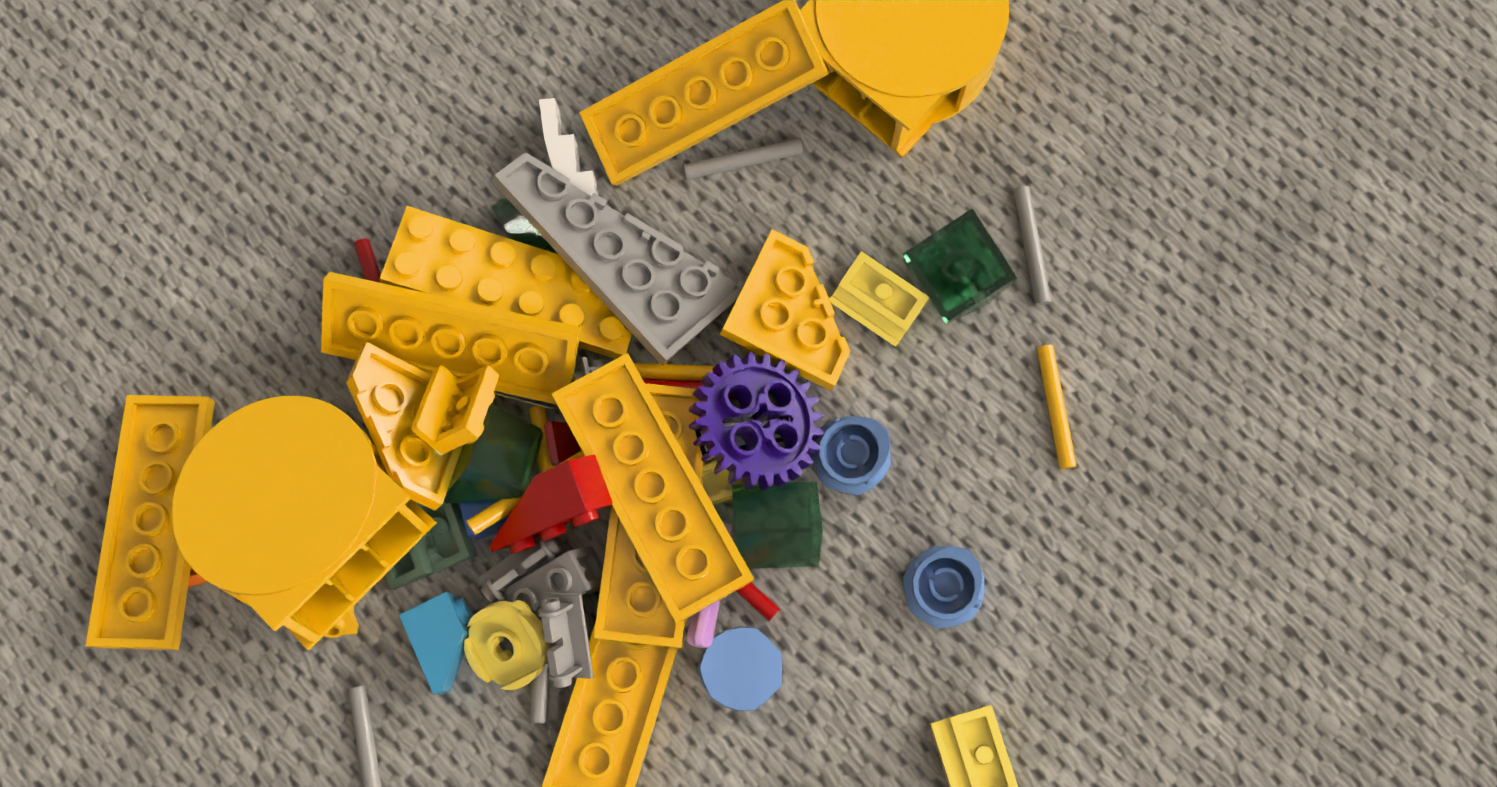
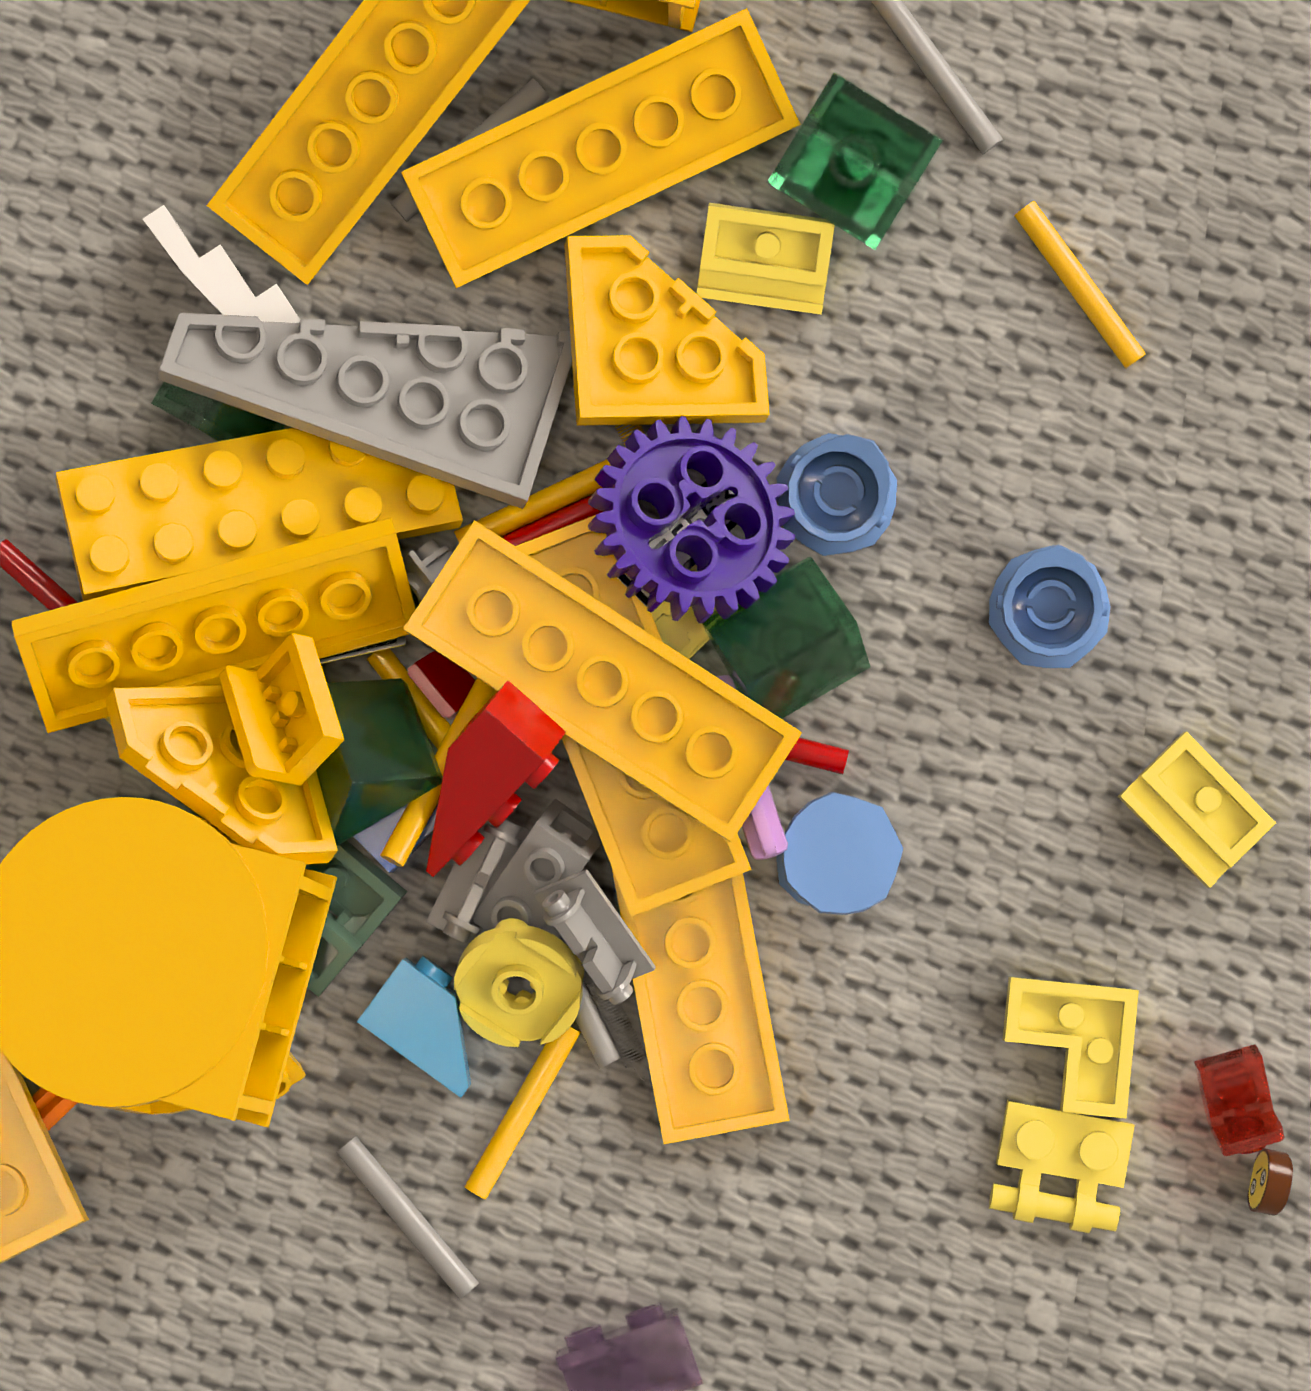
camera: 30 degrees left, 10 degrees up
(468, 725) = (520, 1113): none -> yellow bar
(816, 190) = (600, 148): none -> yellow plate

